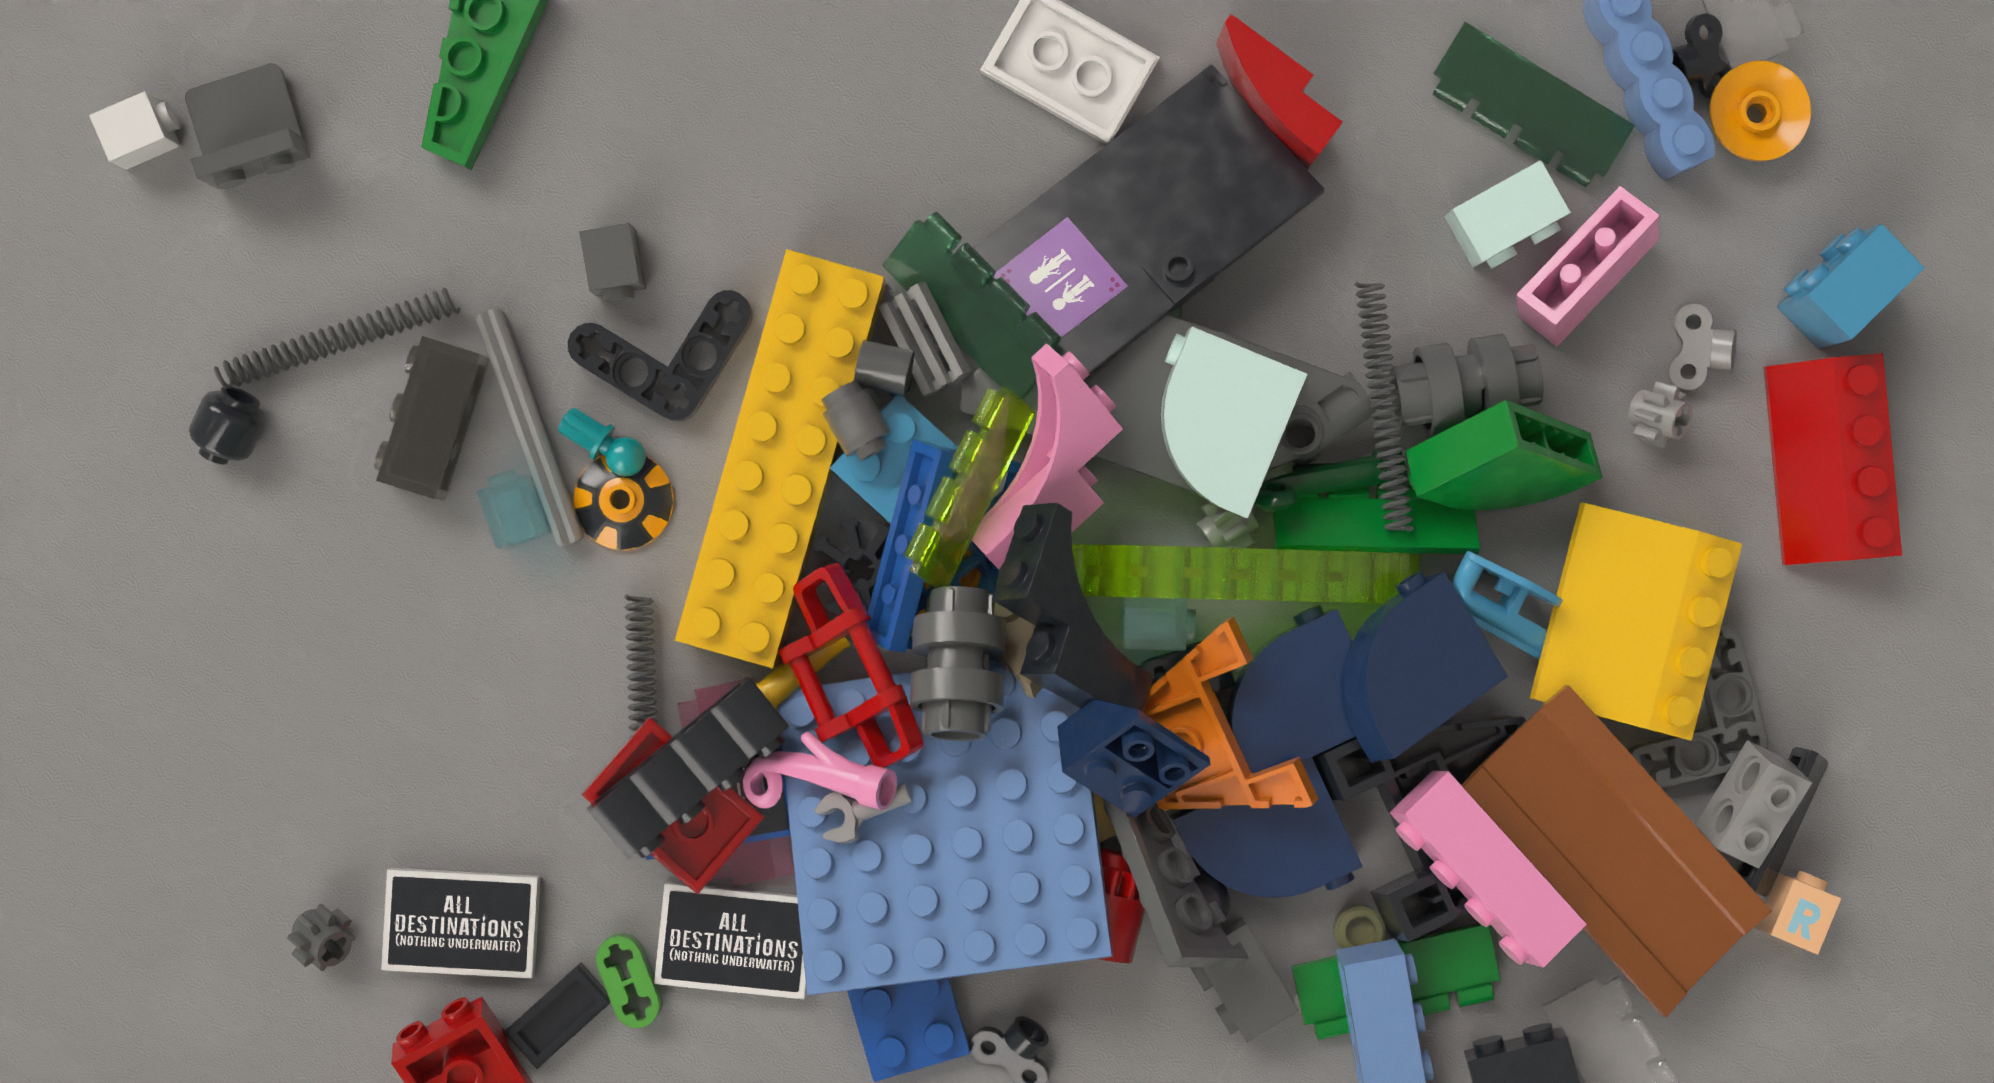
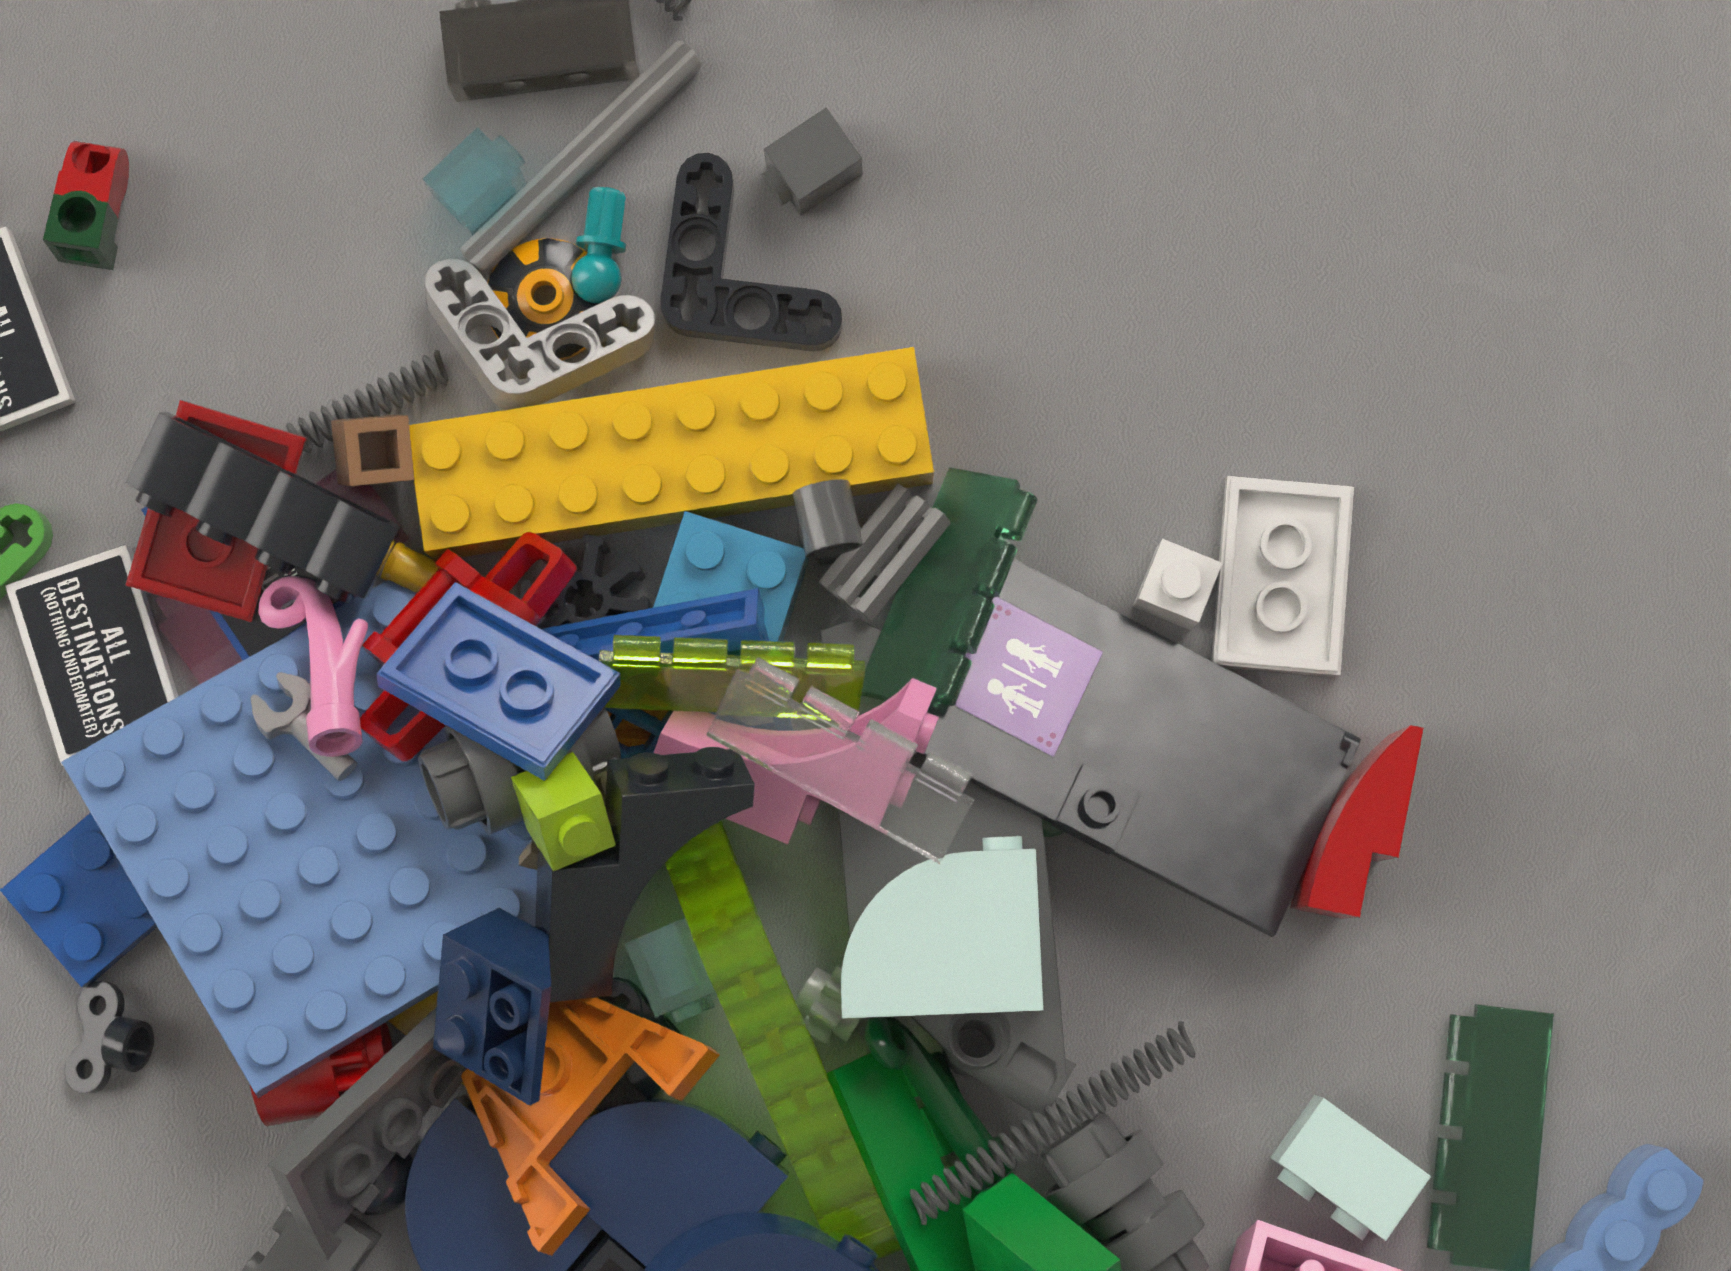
camera: 70 degrees right, 5 degrees down
(399, 802) = (87, 205): none -> leg
(663, 524) = (534, 355): none -> light grey beam
(680, 673) = (372, 450): none -> medium nougat brick
(855, 421) = (749, 513): flat silver brick -> none
(898, 651) = (499, 680): none -> tile
(1014, 647) = (564, 813): none -> lime brick
(1043, 141) = (1177, 584): none -> white brick
(1058, 445) = (855, 773): none -> clear windscreen

